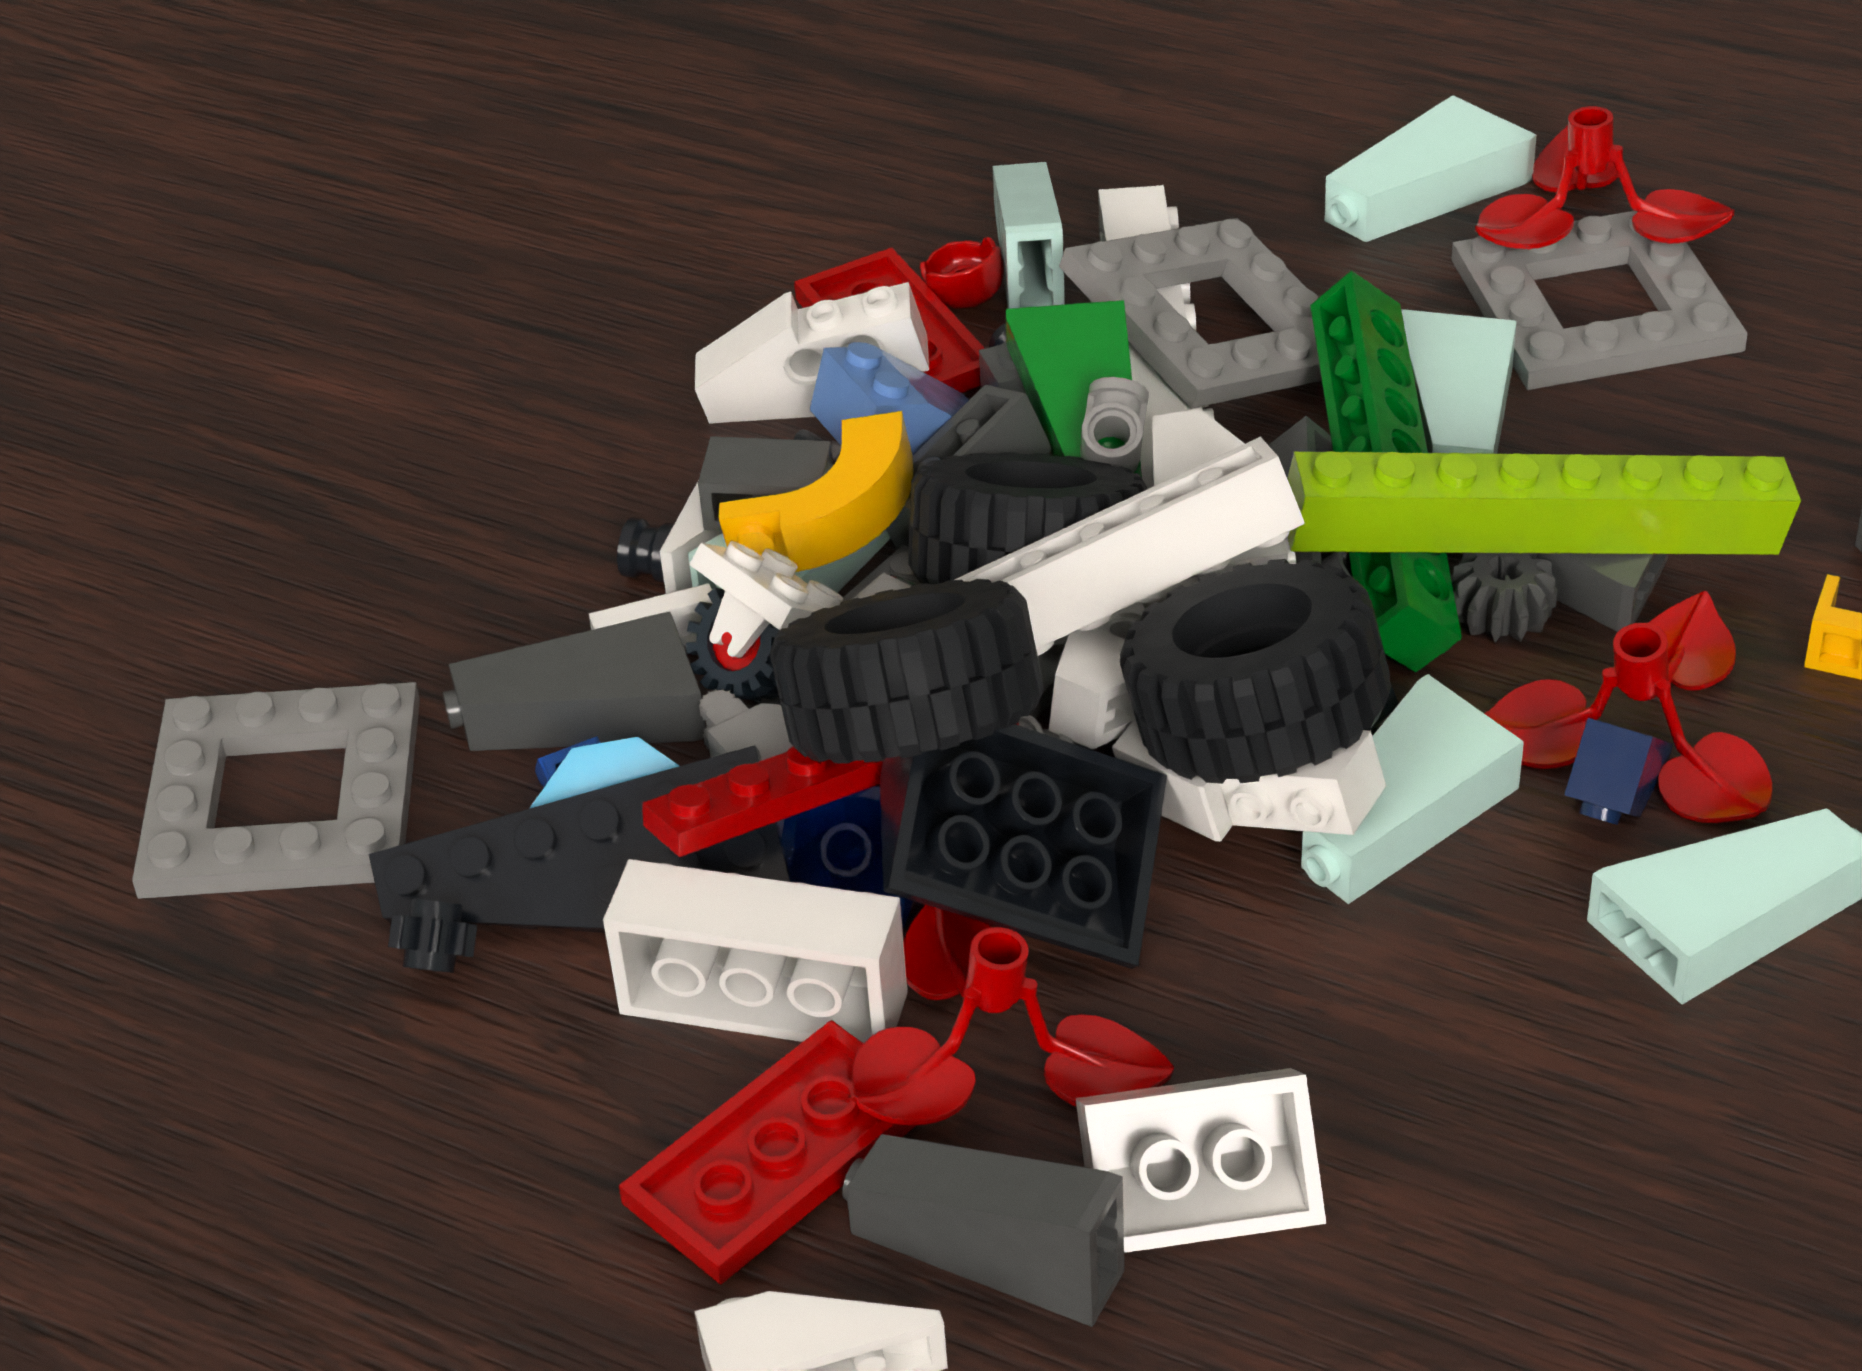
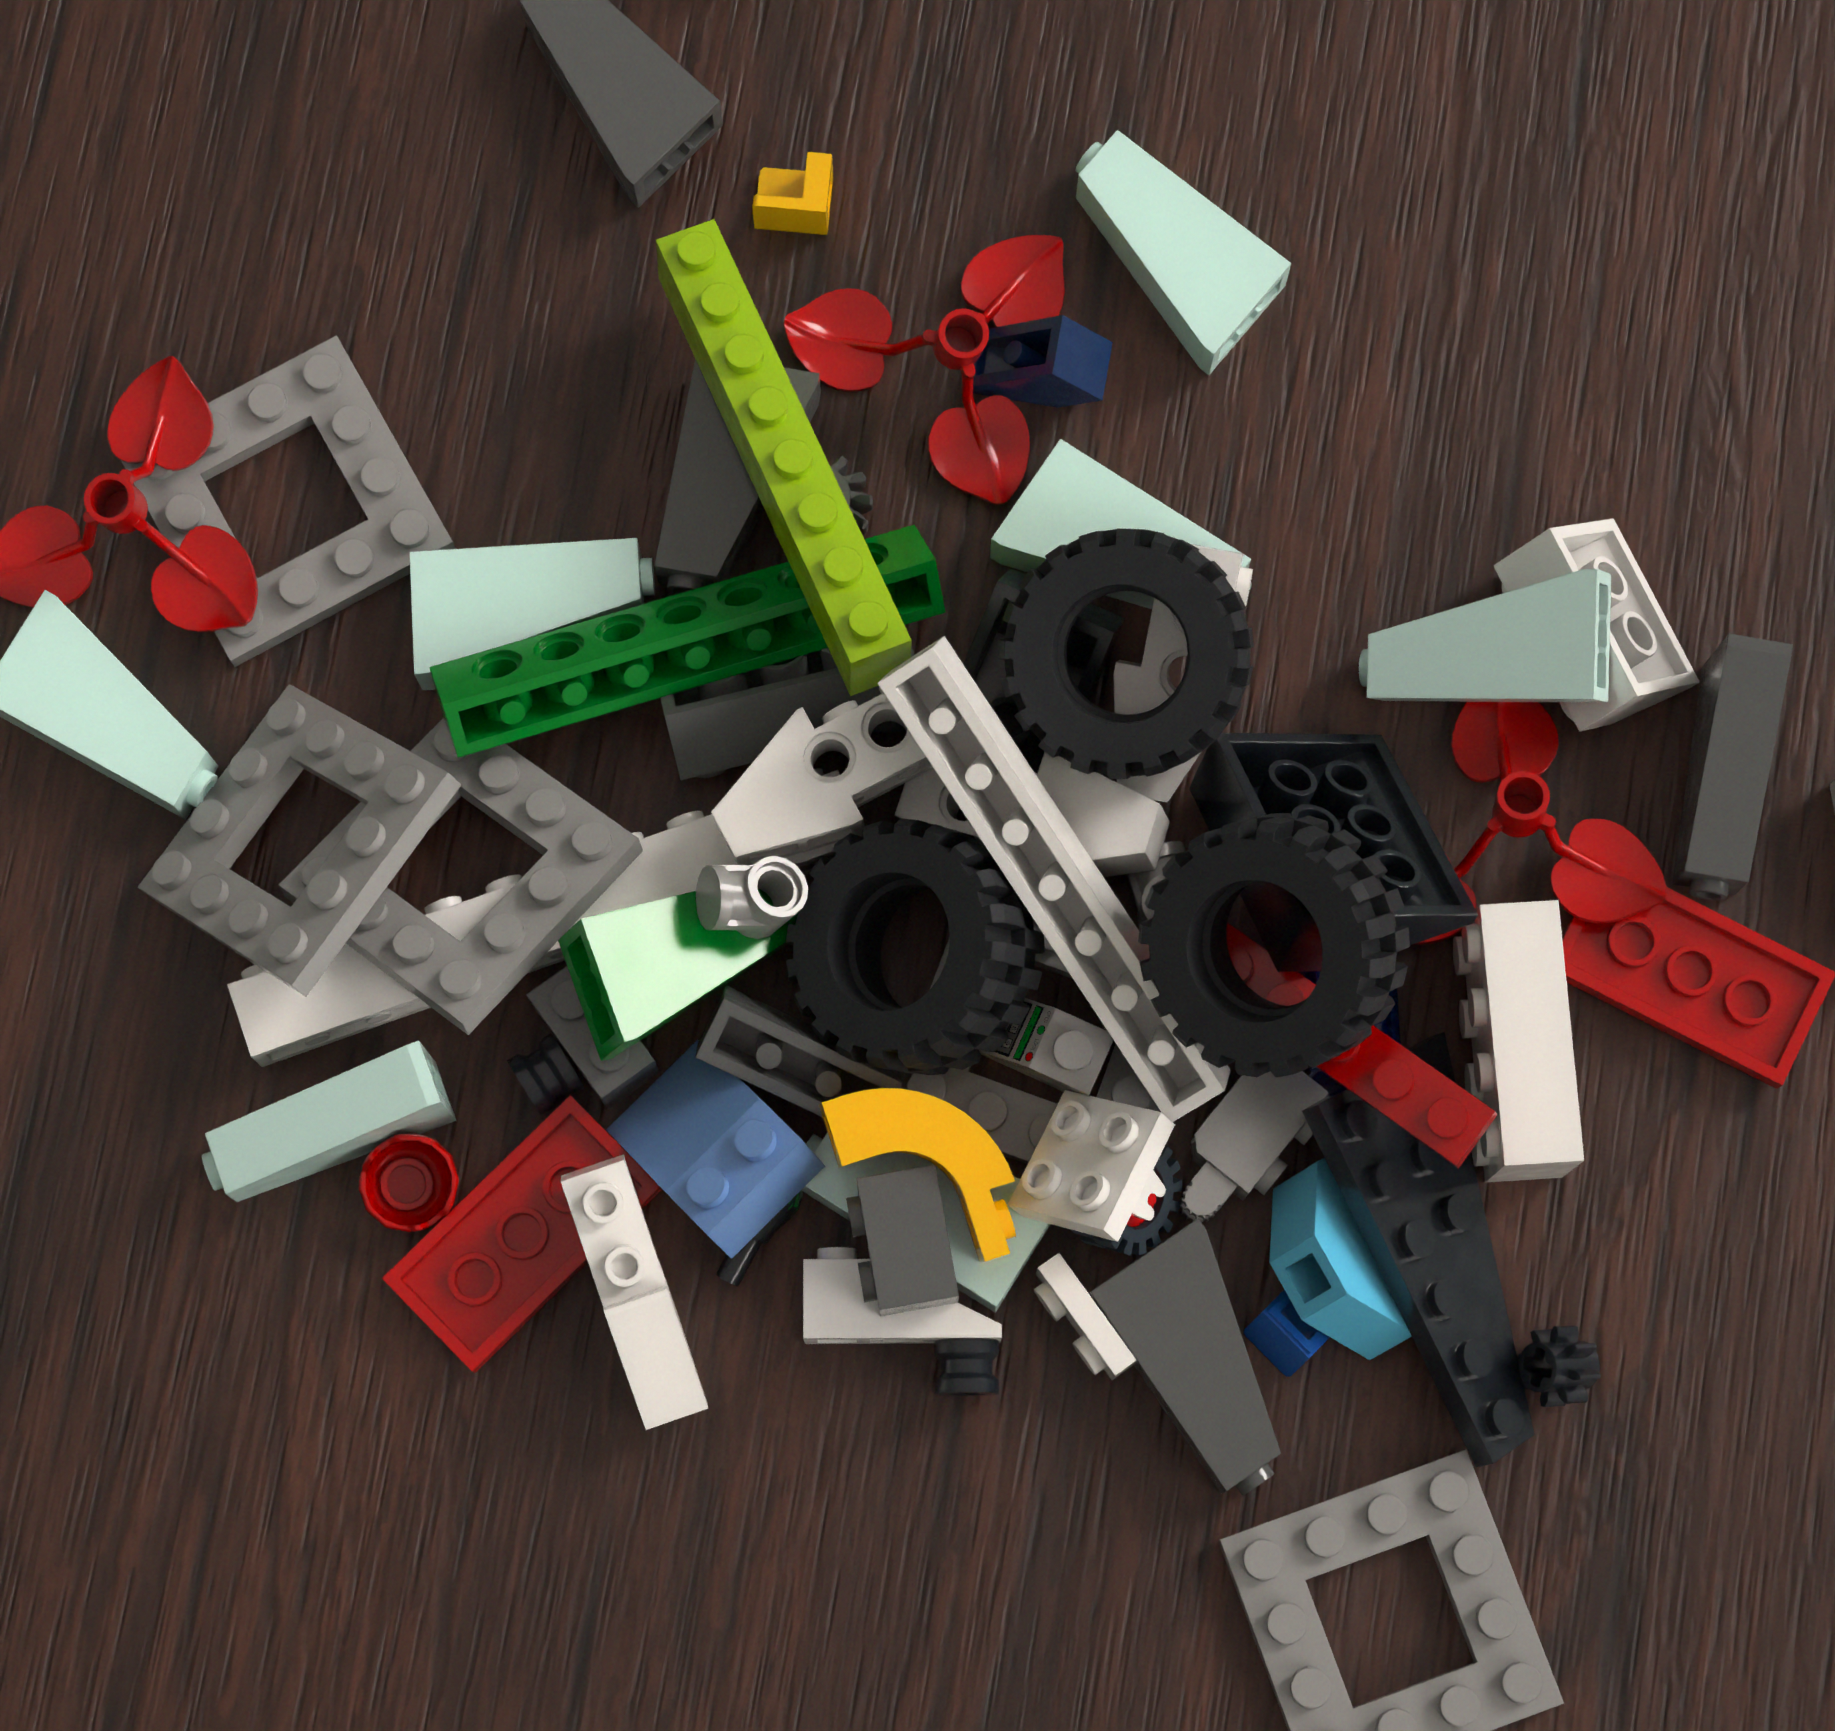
camera: 110 degrees left, 35 degrees up
(1172, 1018) = (1507, 648): none -> light aqua slope
(1307, 244) = (301, 940): none -> light grey plate

